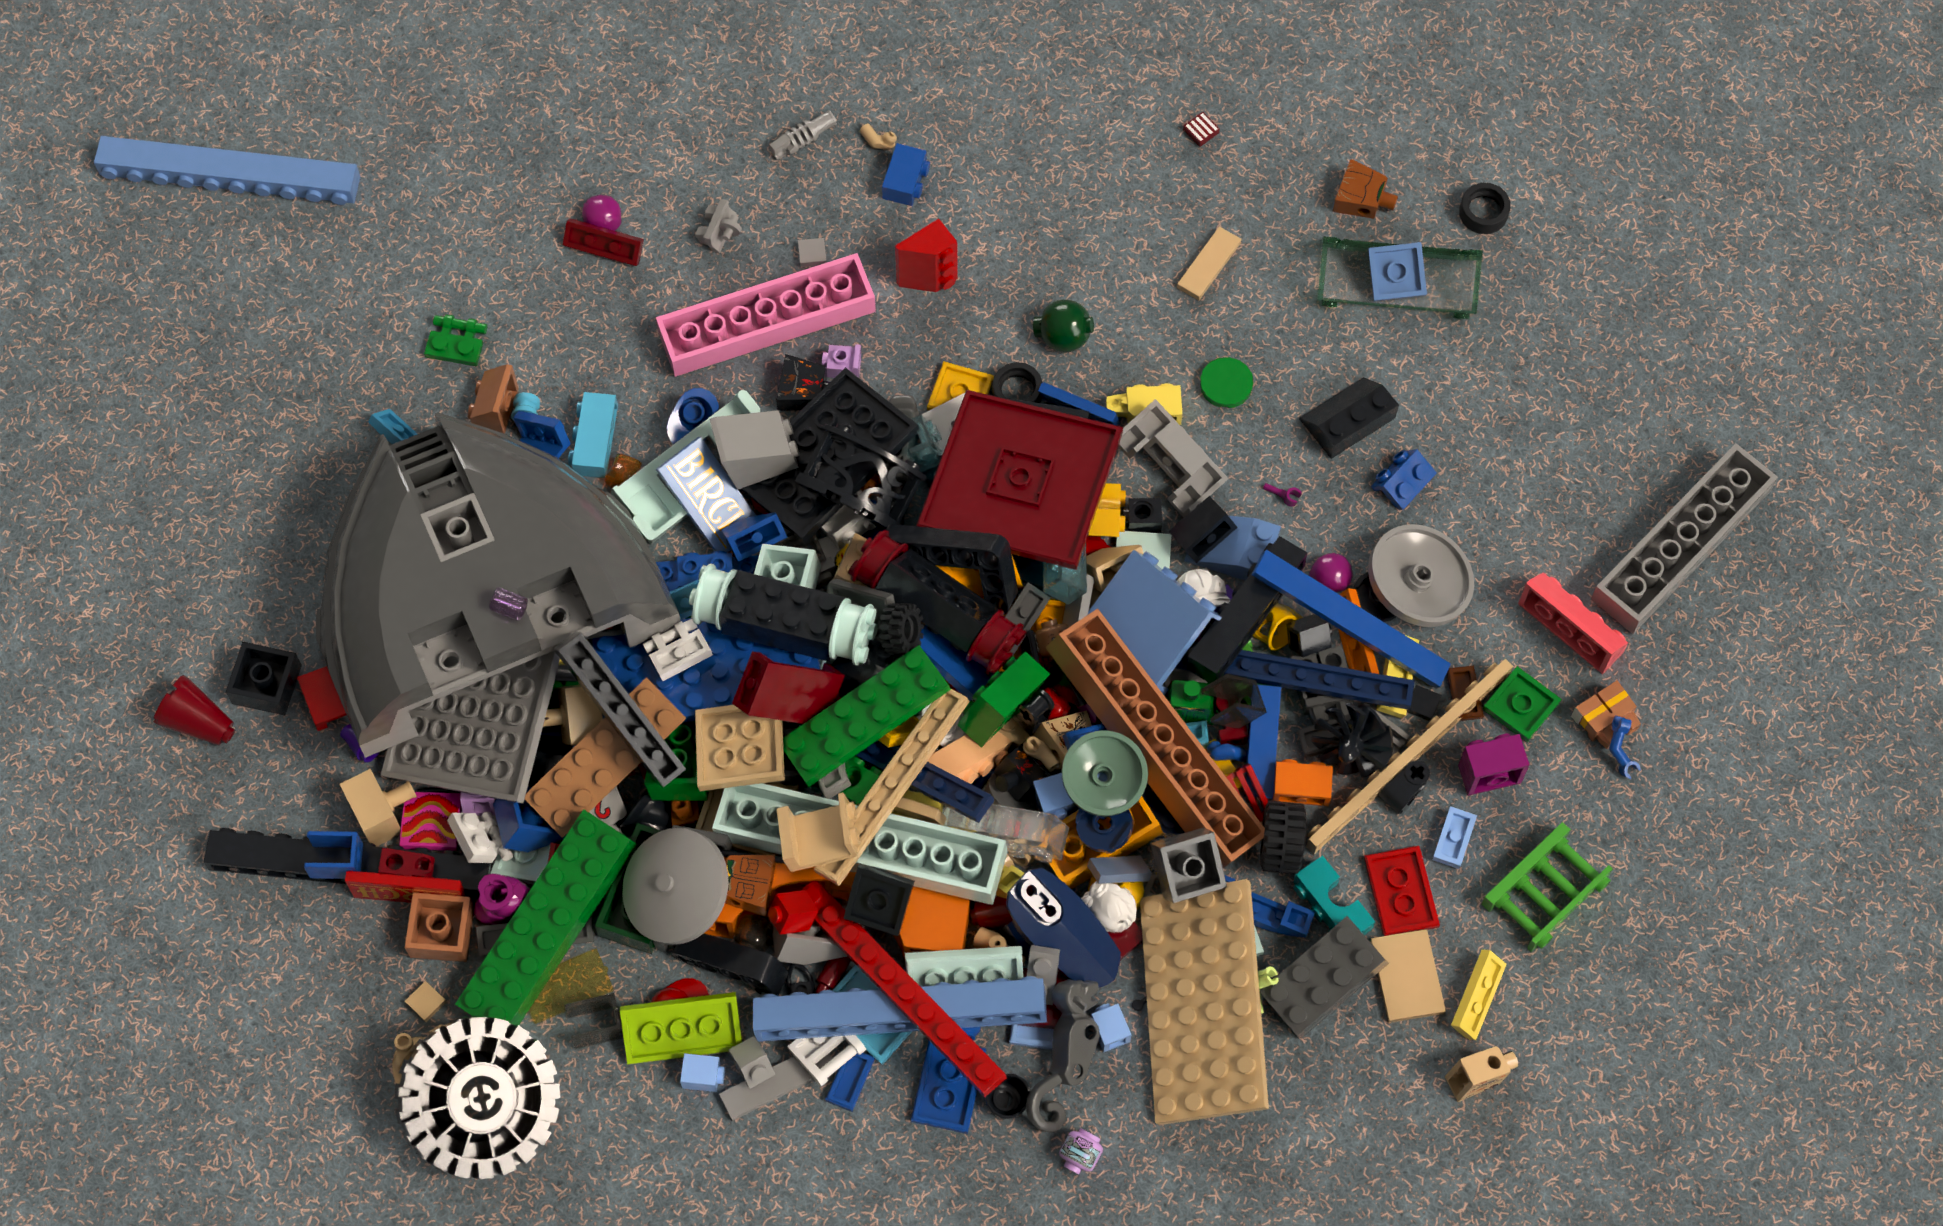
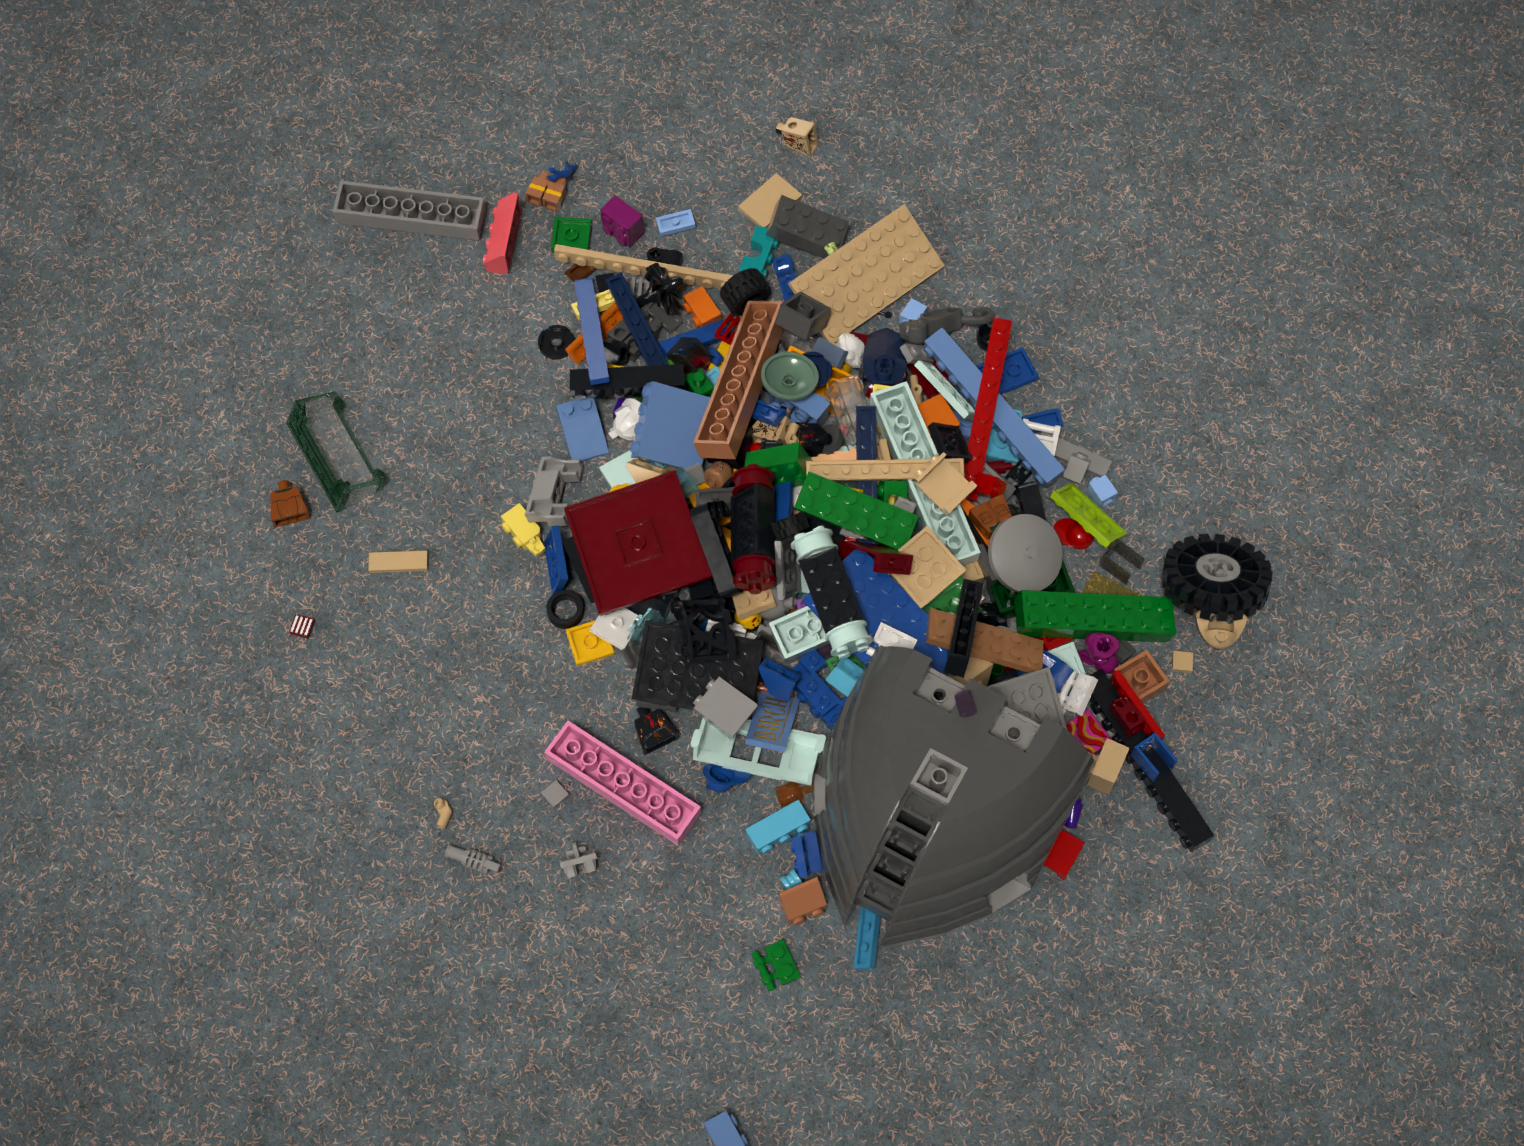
camera: 125 degrees left, 0 degrees up
(193, 714) = (1136, 919): dark red cone -> none
(263, 678) = (1082, 894): black brick -> none
(602, 212) = (621, 943): magenta hair -> none
(603, 242) = (641, 924): dark red plate -> none
(851, 359) = (620, 727): lavender brick -> none
(905, 174) = (460, 774): blue brick -> none
(927, 259) = (517, 705): red slope -> none
(1064, 326) = (504, 608): dark green brick -> none
(1081, 1151) = (988, 287): head -> none
(1151, 507) = (595, 480): black brick -> none
(1203, 529) = (586, 446): black brick -> none
(1226, 382) = (475, 501): green tile -> none
(1284, 494) = (527, 424): magenta hand -> none
(1332, 571) = (559, 372): magenta hair -> none
(1350, 416) = (450, 421): black slope -> none
(1397, 271) = (335, 449): medium blue tile -> none
(1401, 891) = (725, 231): red tile -> none
(1404, 477) = (471, 372): blue bracket -> none
(1421, 575) = (531, 322): light grey dish -> none
(1478, 994) = (755, 163): light yellow plate -> none
(1480, 225) = (256, 446): black tyre -> none
(1538, 860) = (669, 180): bright green fence -> none

